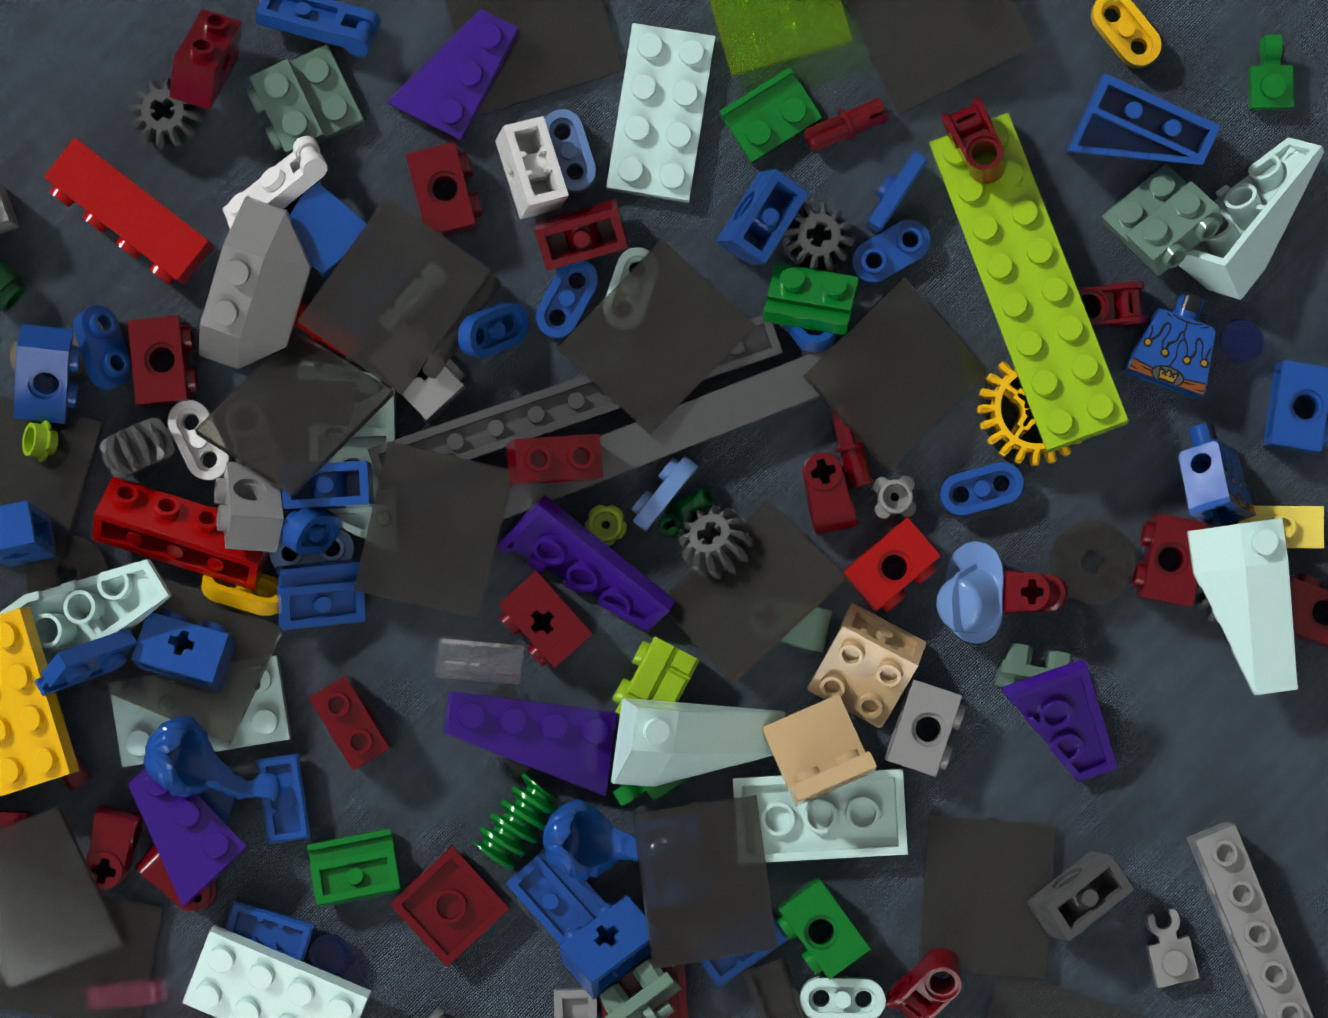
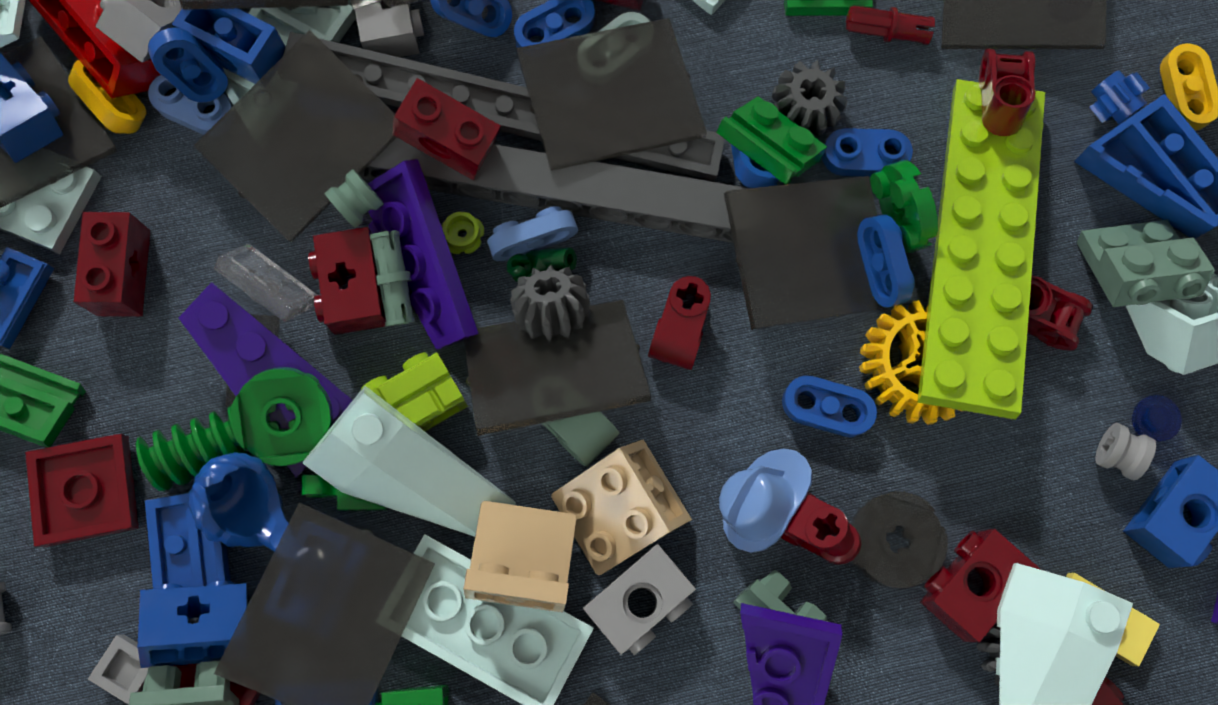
camera: 30 degrees right, 10 degrees down
(319, 594) = (162, 136): blue plate -> none
(513, 556) = (354, 198): none -> sand green wheel
(555, 740) = (264, 437): none -> green plate
(580, 599) = (392, 278): none -> sand green pin
(762, 217) = (770, 48): blue brick -> none
(852, 455) = (727, 304): dark red axle -> none
(893, 192) = (903, 100): blue plate -> none
(903, 542) = (723, 407): red brick -> none
(904, 504) = (754, 362): light grey plate -> none
(950, 296) = (906, 203): none -> green plate
(958, 346) = (885, 260): none -> blue plate
(1071, 80) = (1119, 97): none -> blue gear
(1174, 349) = (1089, 388): torso -> none
(1214, 479) = (1068, 525): blue torso -> none
(1229, 385) = (1125, 451): none -> light grey wheel

